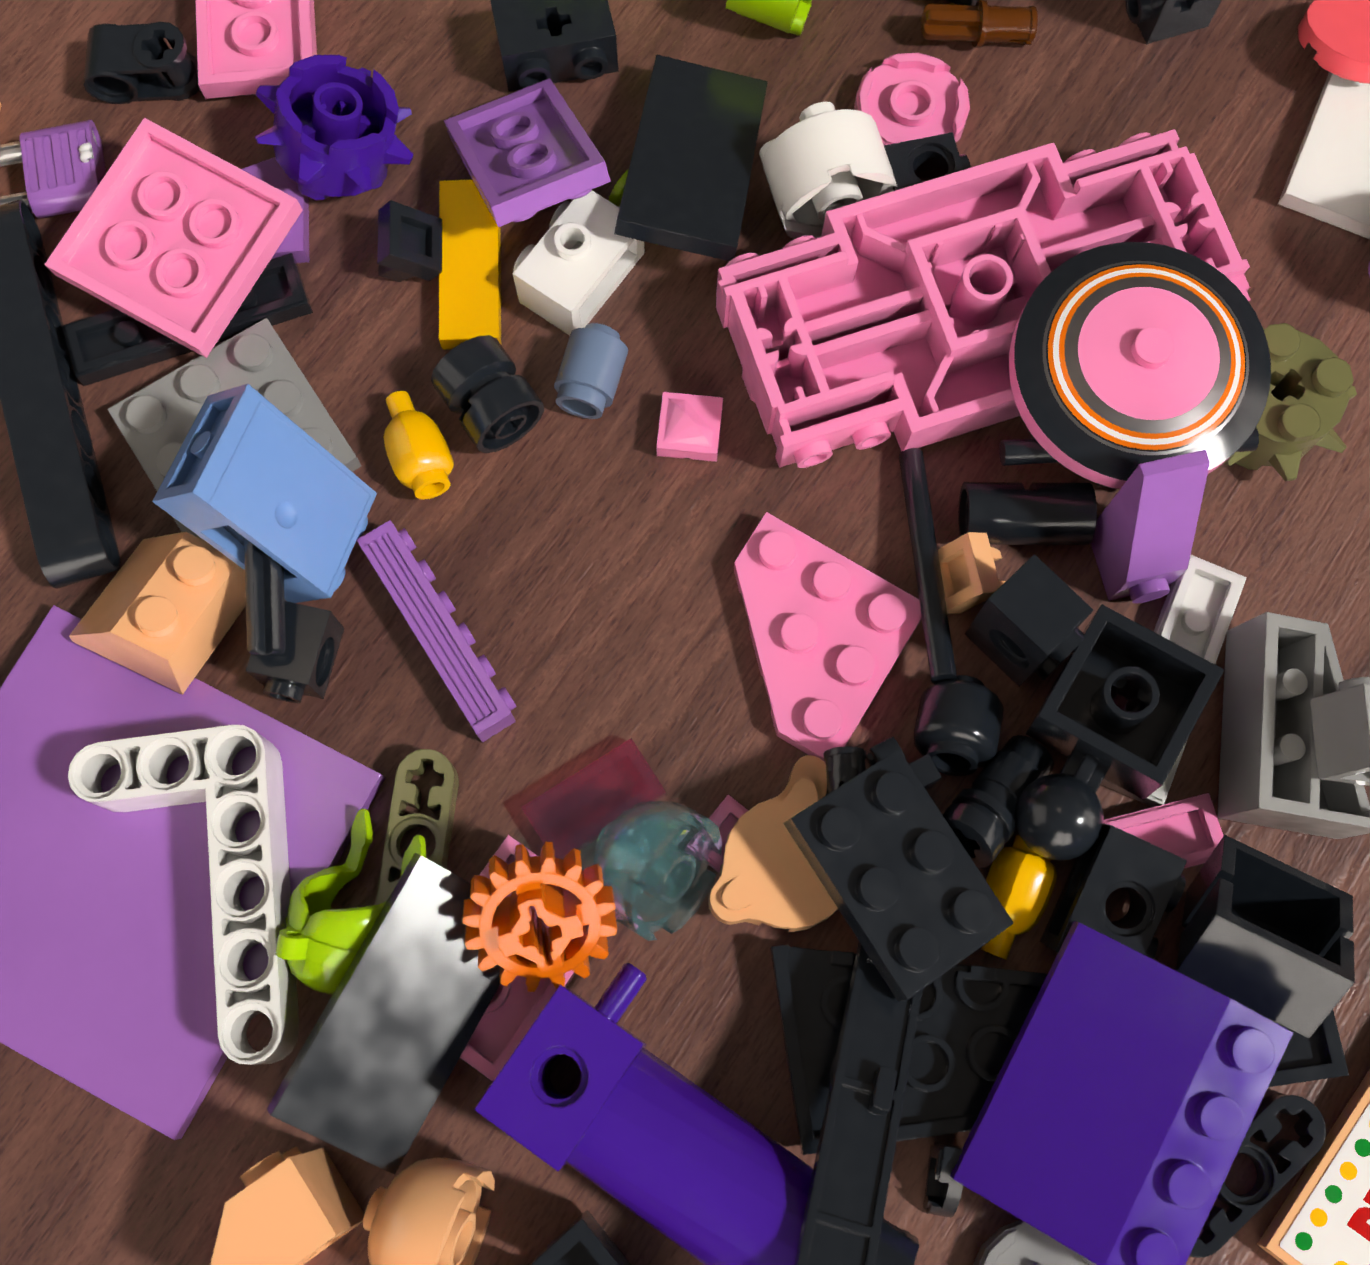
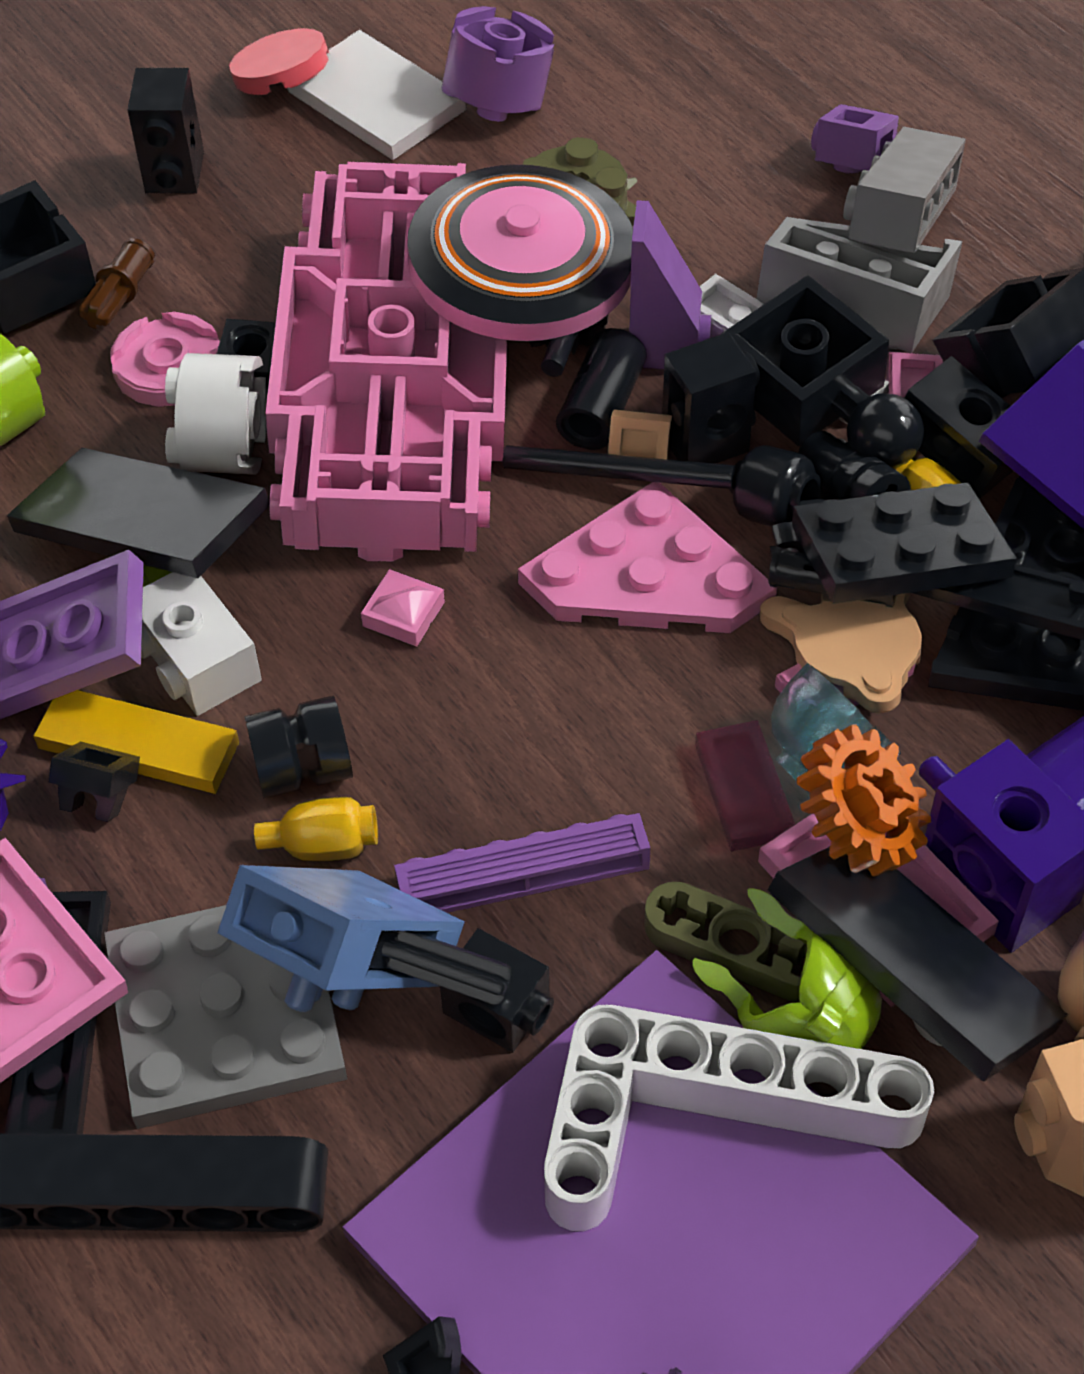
camera: 70 degrees left, 20 degrees down
(165, 609) = (398, 1099): light nougat slope -> none
(590, 370) = (312, 660): sand blue brick -> none

